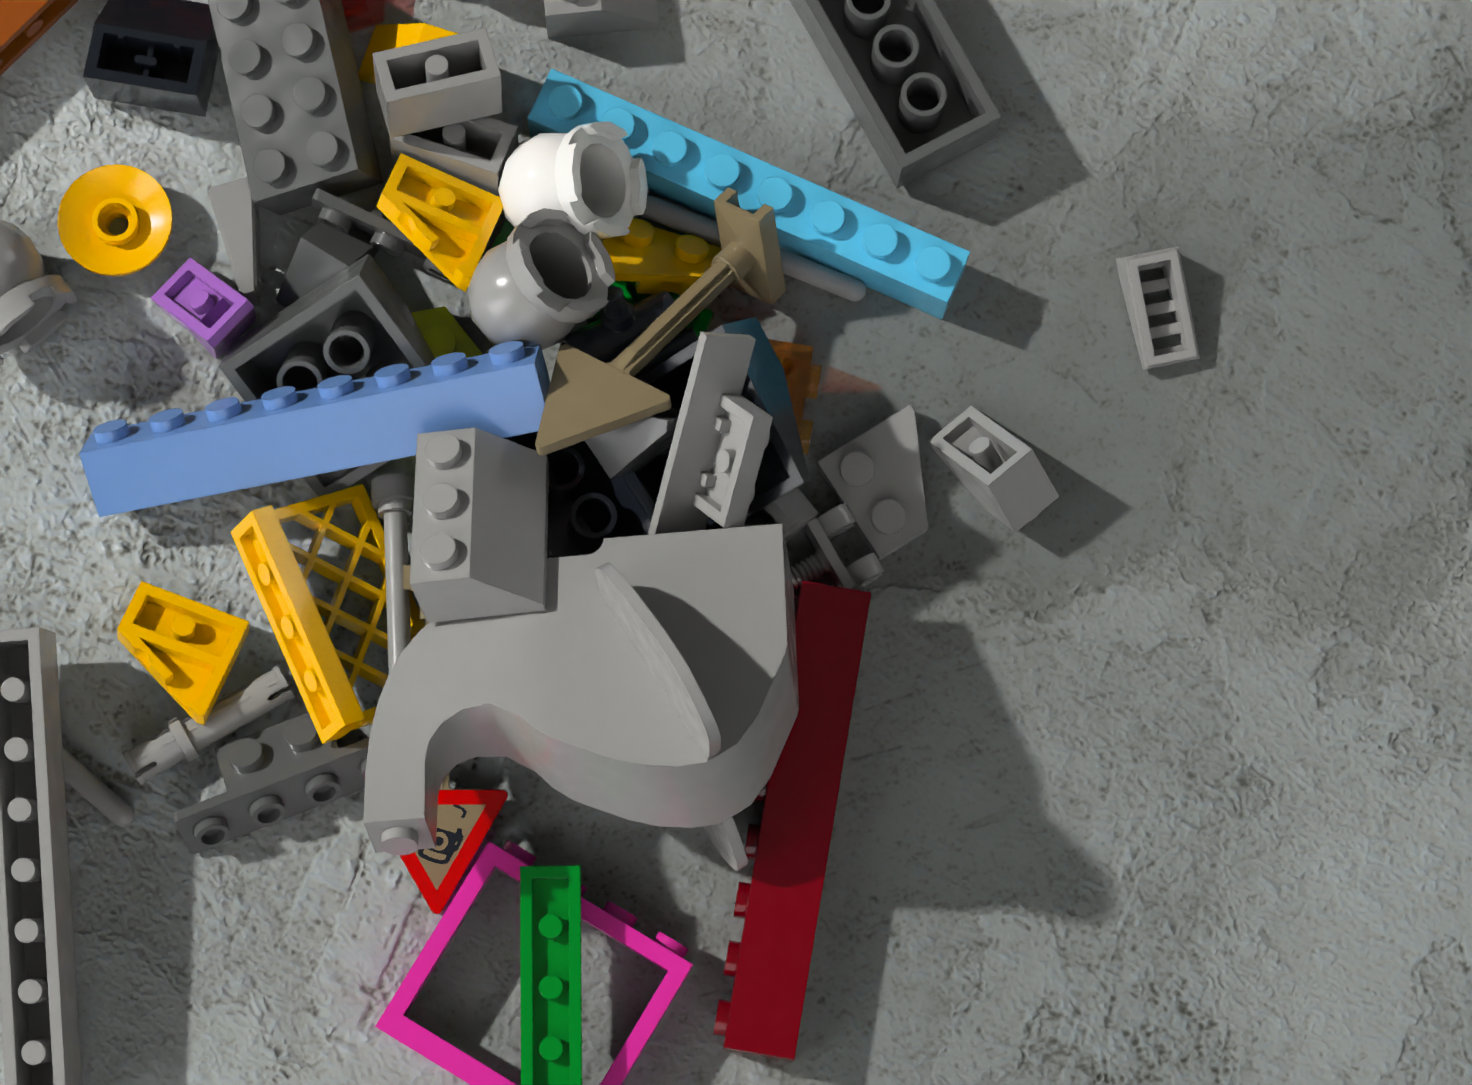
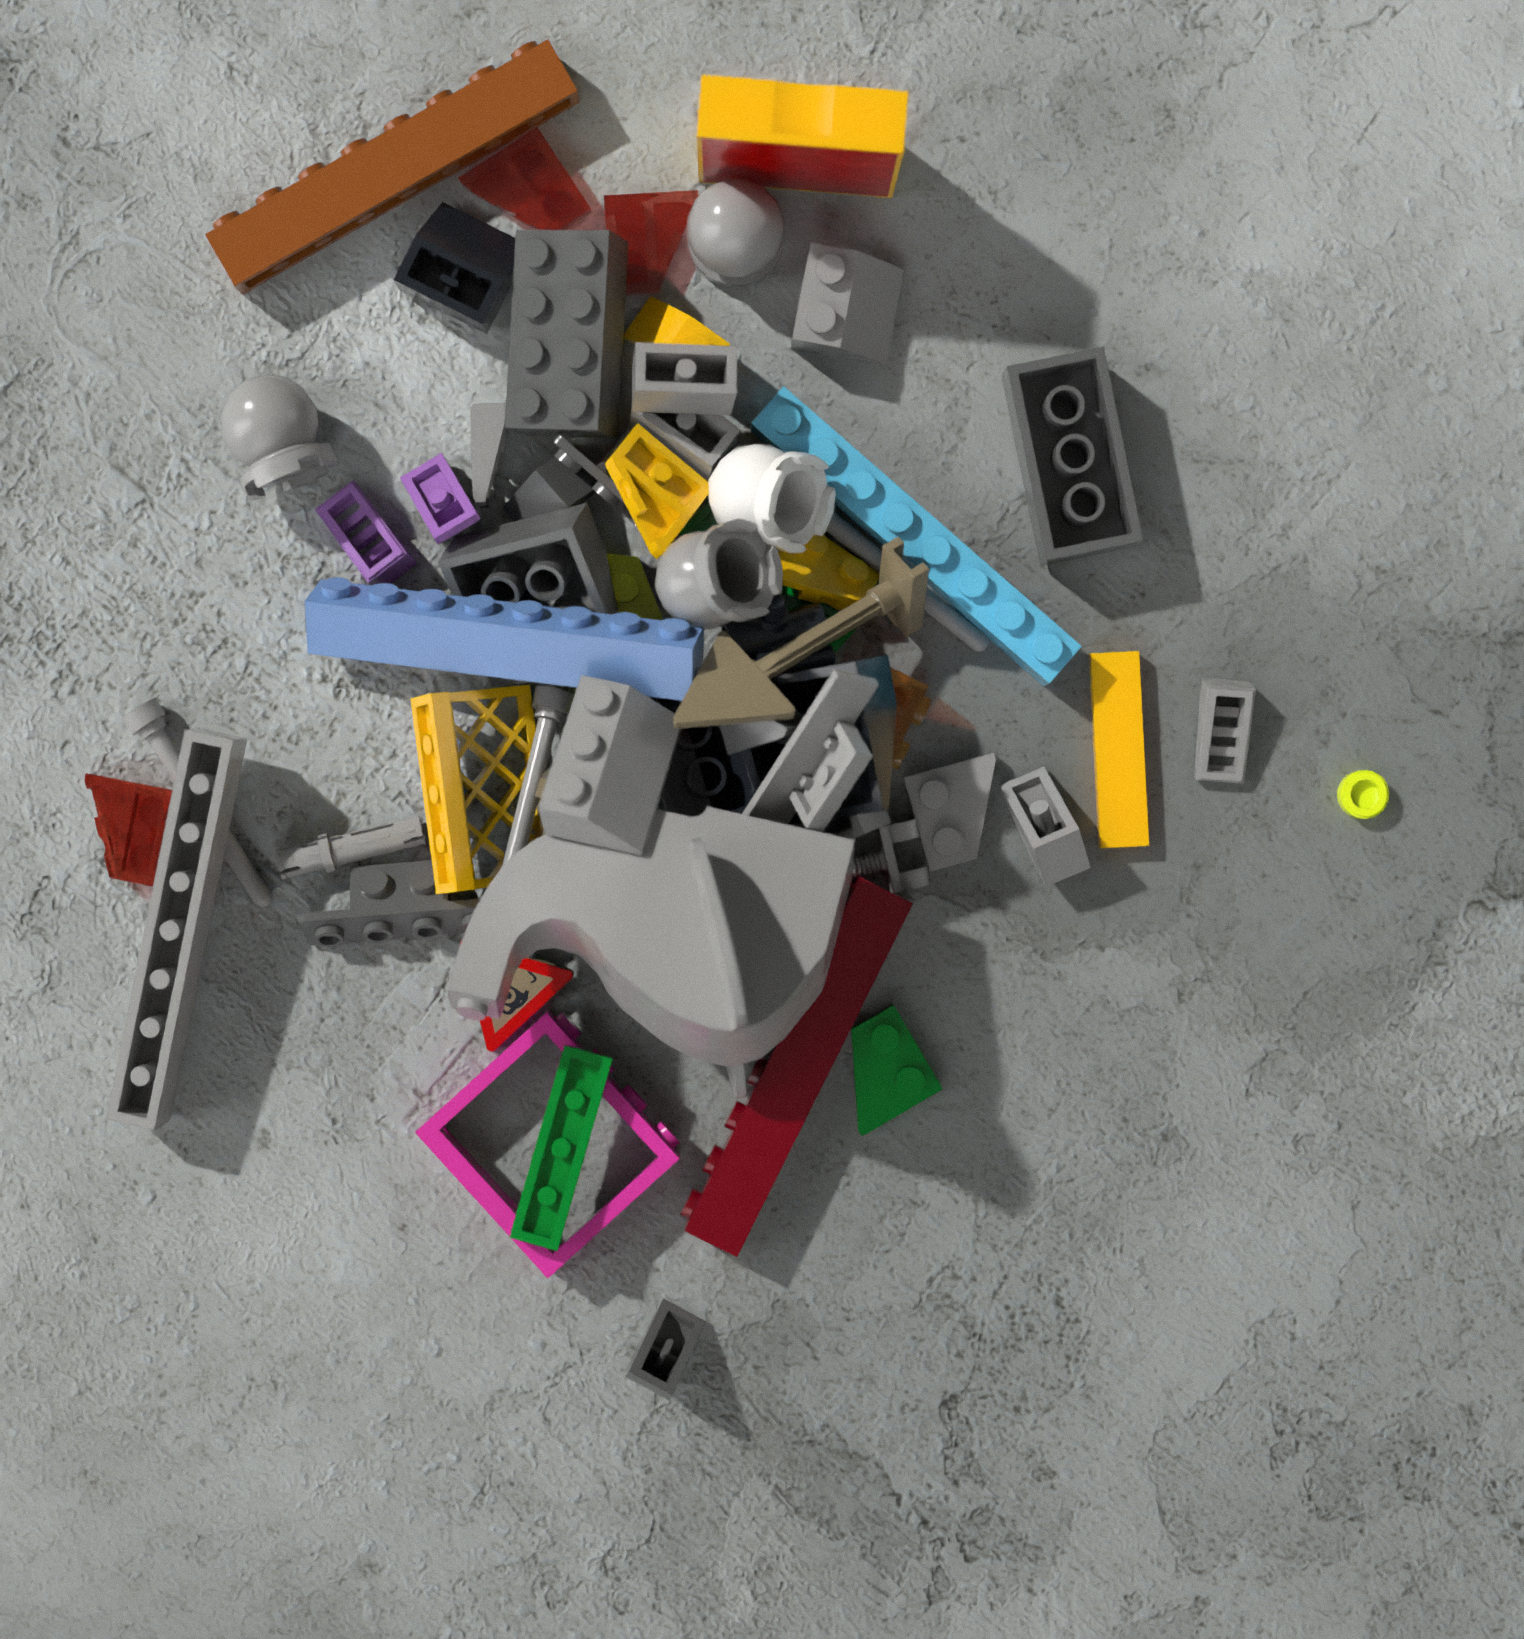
camera: 20 degrees right, 10 degrees up
(98, 200) = (380, 380): yellow dish -> none
(160, 391) = (391, 566): none -> medium lavender slope
(183, 645) = (347, 777): yellow wing -> none
(902, 797) = (887, 1070): none -> green wing
(1048, 362) = (1118, 749): none -> yellow tile
(1336, 331) = (1363, 794): none -> neon yellow tile

